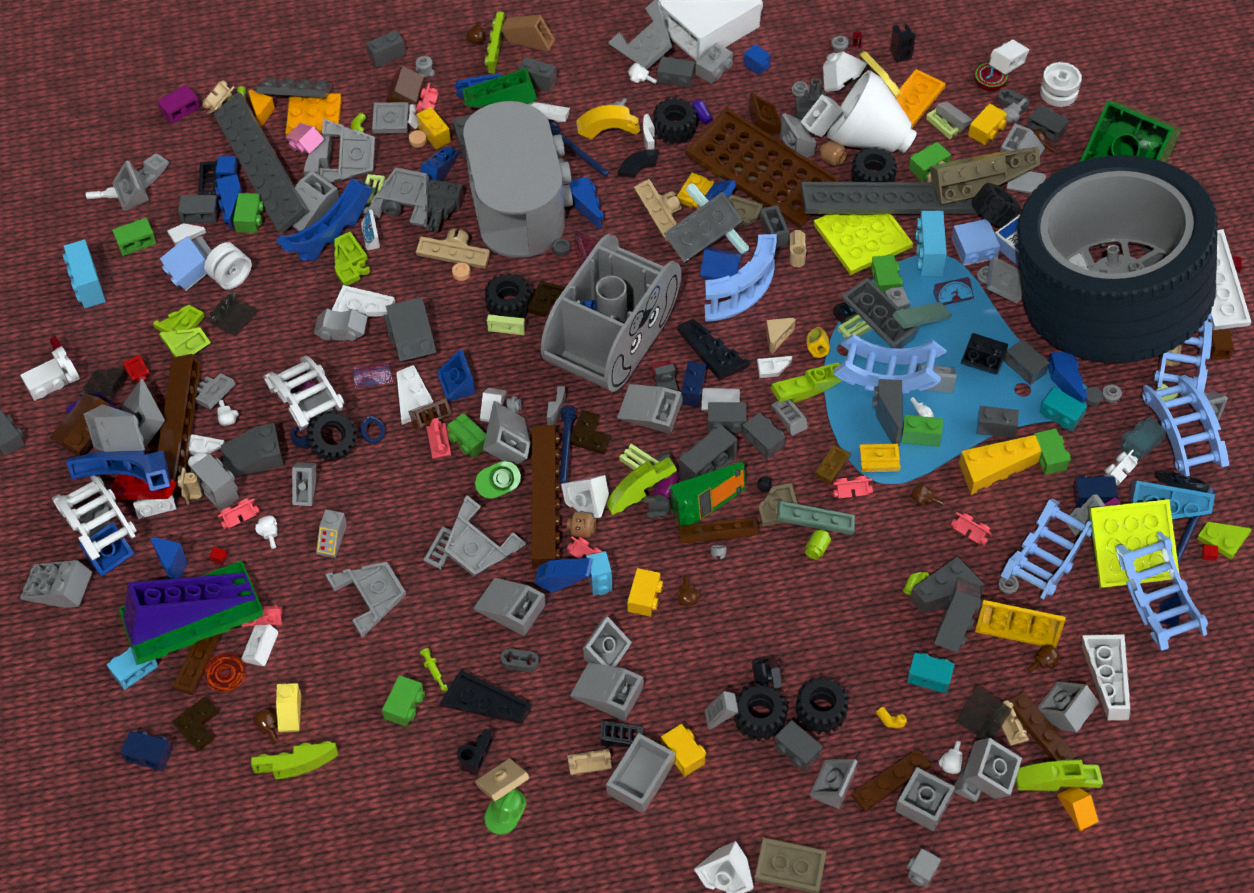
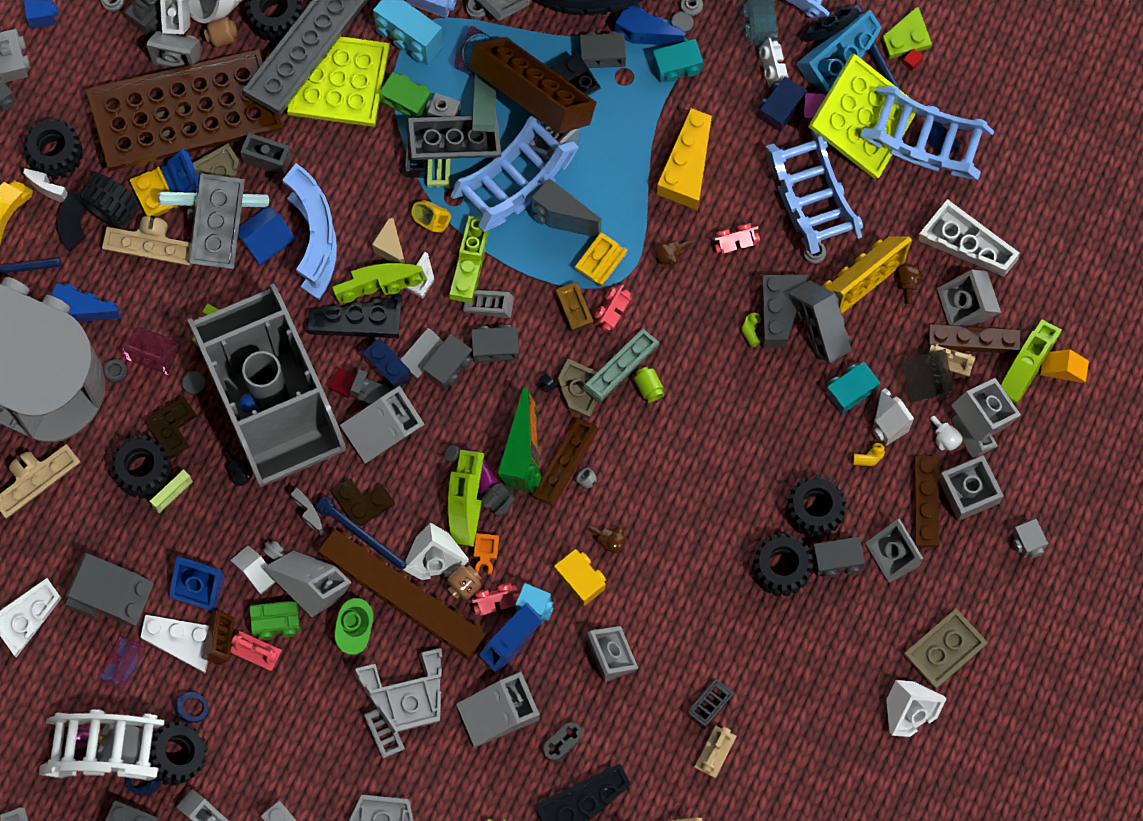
camera: 55 degrees left, 15 degrees up
(340, 325) = (38, 655): light grey brick -> none
(461, 271) = (64, 489): light nougat tile -> none
(608, 689) = (656, 683): light grey slope -> none
(616, 524) = (486, 549): none -> orange plate
(634, 452) = (424, 470): yellowish green tile -> none
(640, 773) = (767, 714): light grey piece -> none
(665, 165) = (108, 200): none -> black tyre
(687, 753) = (768, 659): yellow brick -> none
(702, 112) = (62, 113): dark purple cone -> none
(710, 454) = (484, 414): dark grey brick -> none
(724, 707) = (762, 586): light grey slope -> none
(749, 340) = (388, 277): none -> lime slope
(764, 114) = (118, 59): reddish brown slope -> none
(766, 671) = (747, 528): black plate -> none
(797, 249) = (306, 150): tan piece -> none
(921, 409) = (586, 183): white piece -> none
(922, 430) = (606, 197): bright green brick -> none
(927, 712) = (891, 418): none -> white slope
(957, 329) = (532, 85): none -> reddish brown brick
(997, 422) = (647, 127): dark grey brick -> none
(1053, 454) = (718, 105): bright green brick -> none
(1082, 514) = (800, 132): light grey slope -> none

